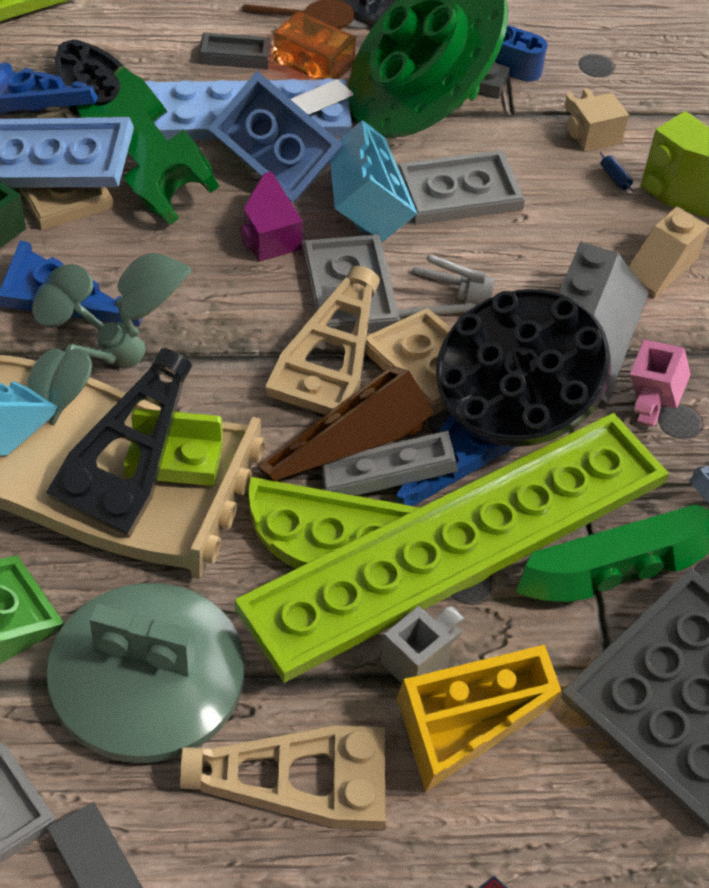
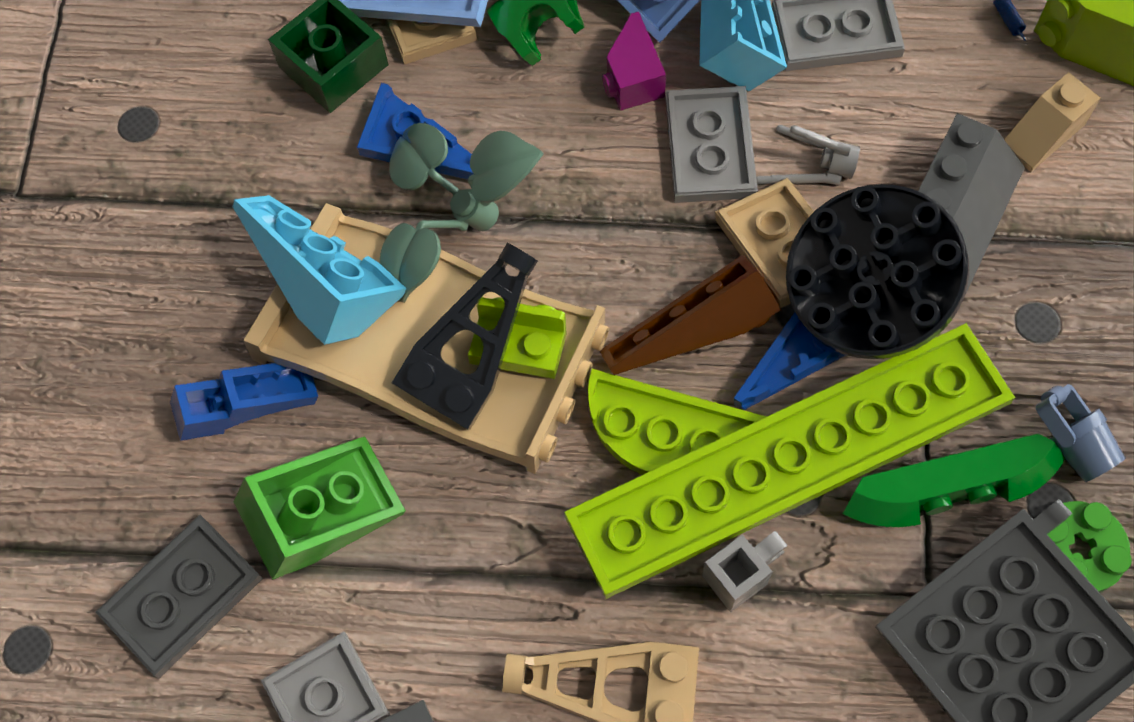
camera: 15 degrees right, 15 degrees up
(145, 672) = (478, 570): sand green bracket -> none
(314, 385) = (662, 265): tan plate -> none
(391, 465) = (732, 364): light grey tile -> none
(473, 707) = (784, 641): yellow wedge -> none
(658, 379) = (1019, 278): bright pink brick -> none

